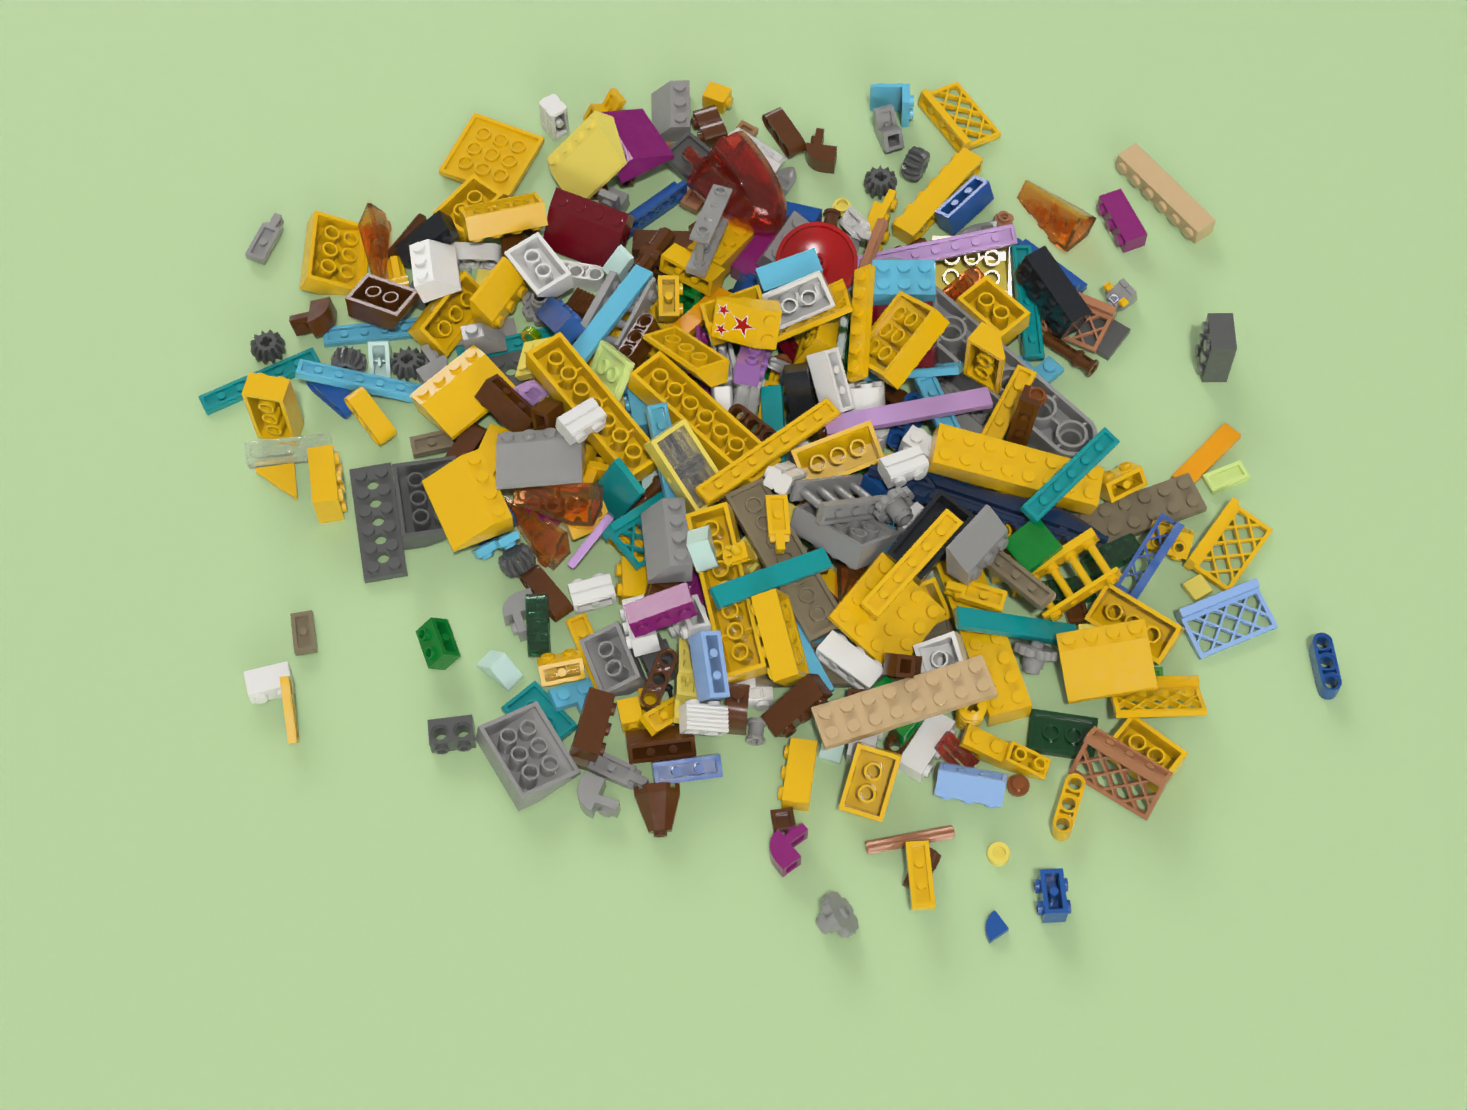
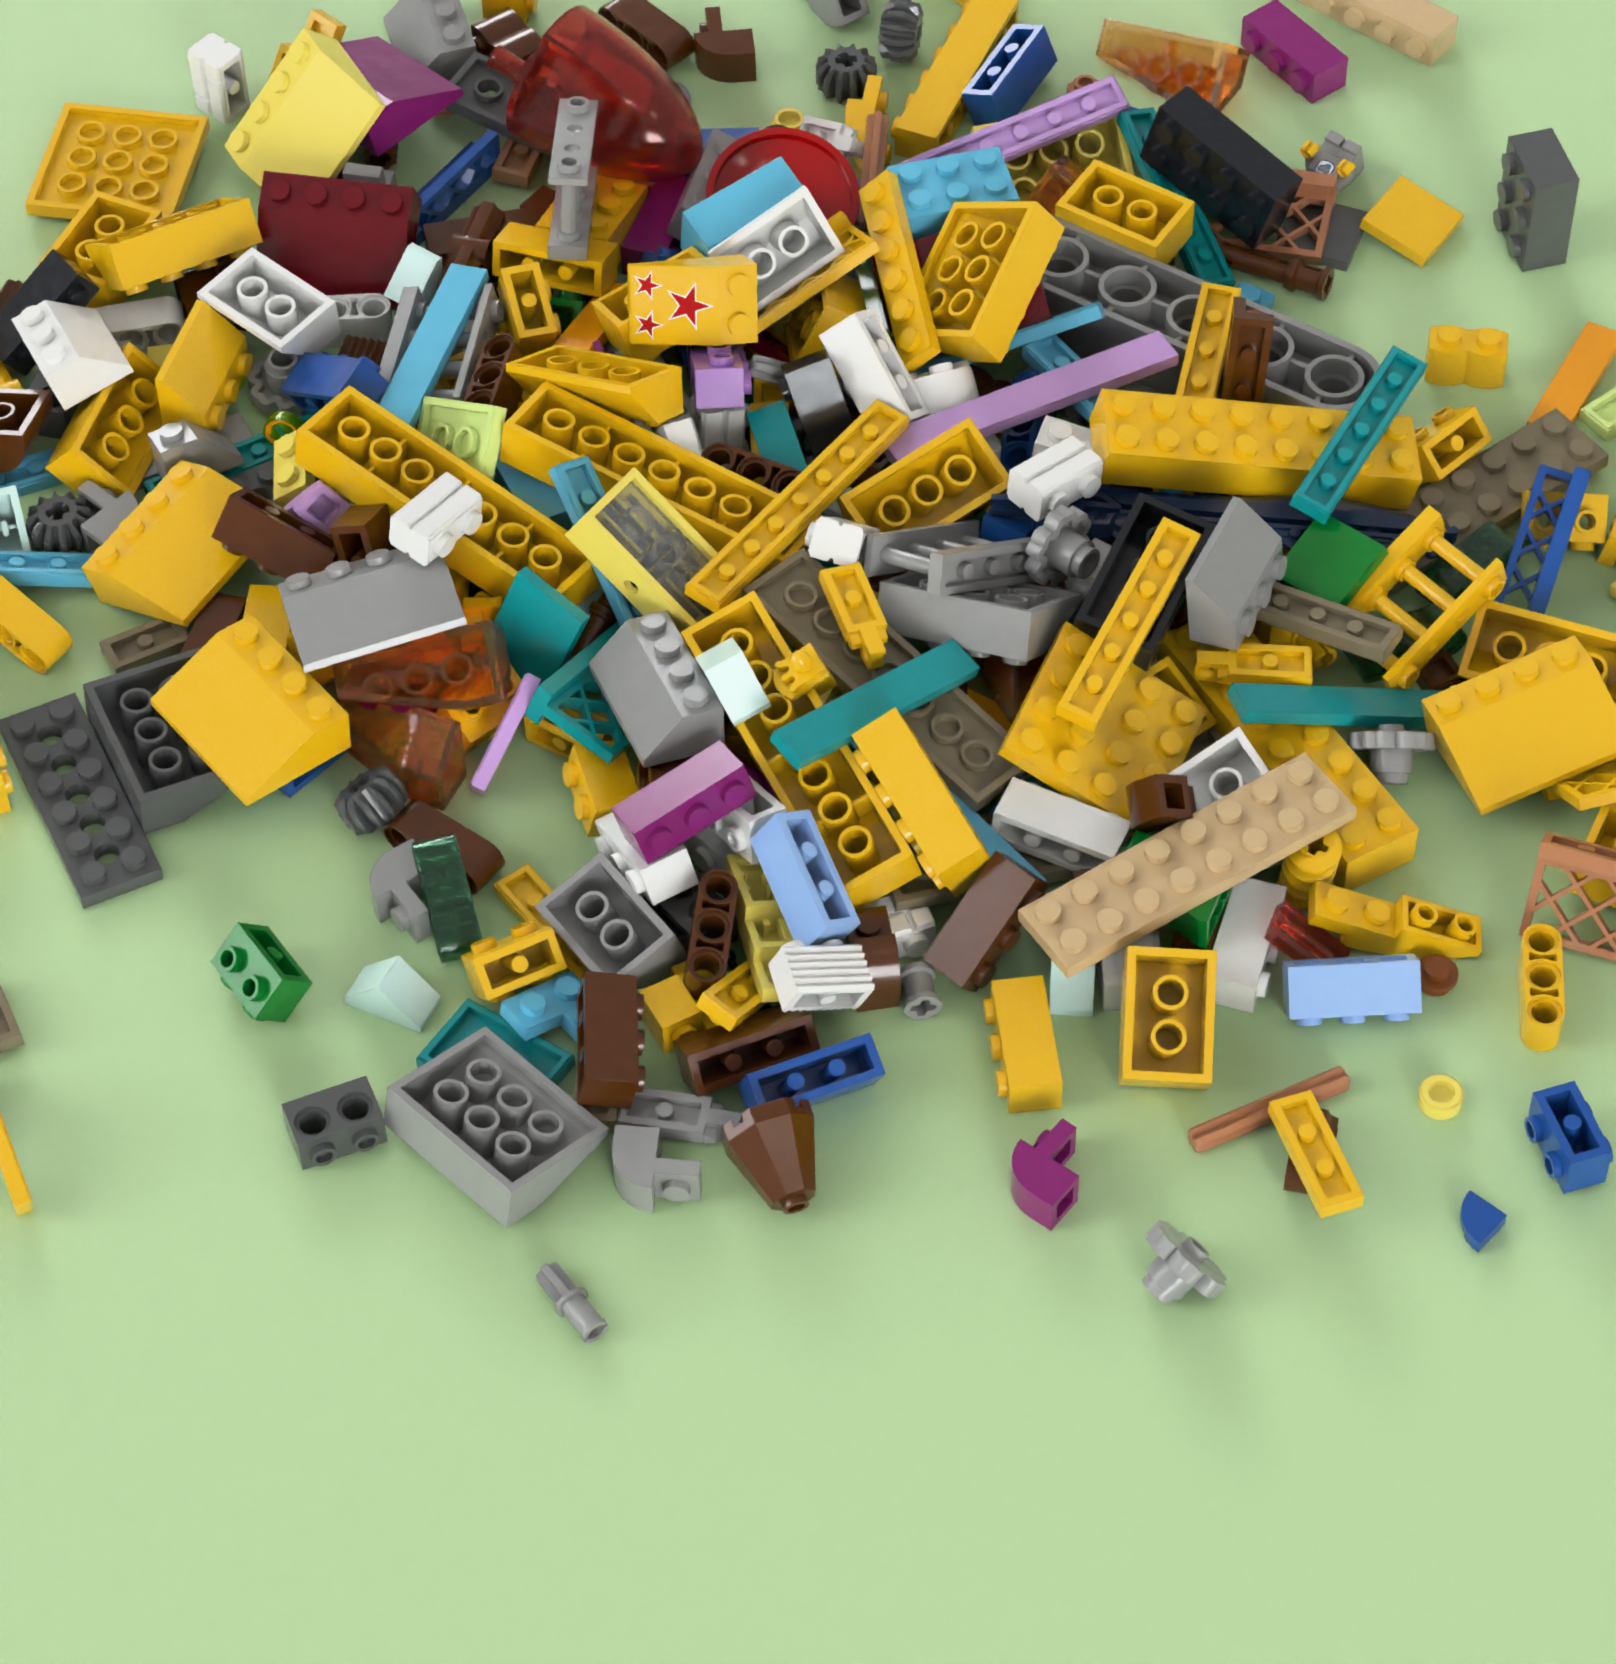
camera: 15 degrees left, 10 degrees down
(502, 541) = (333, 777): medium azure plate -> none
(538, 858) = (571, 1302): none -> light grey axle
(592, 593) = (533, 826): white brick -> none
(782, 819) = (1016, 1125): reddish brown tile -> none
(985, 357) = (1147, 274): yellow slope -> none
(1059, 733) = (1481, 872): dark green tile -> none
(1151, 339) = (1411, 221): none -> yellow tile
(1151, 430) = (1466, 356): none -> yellow brick

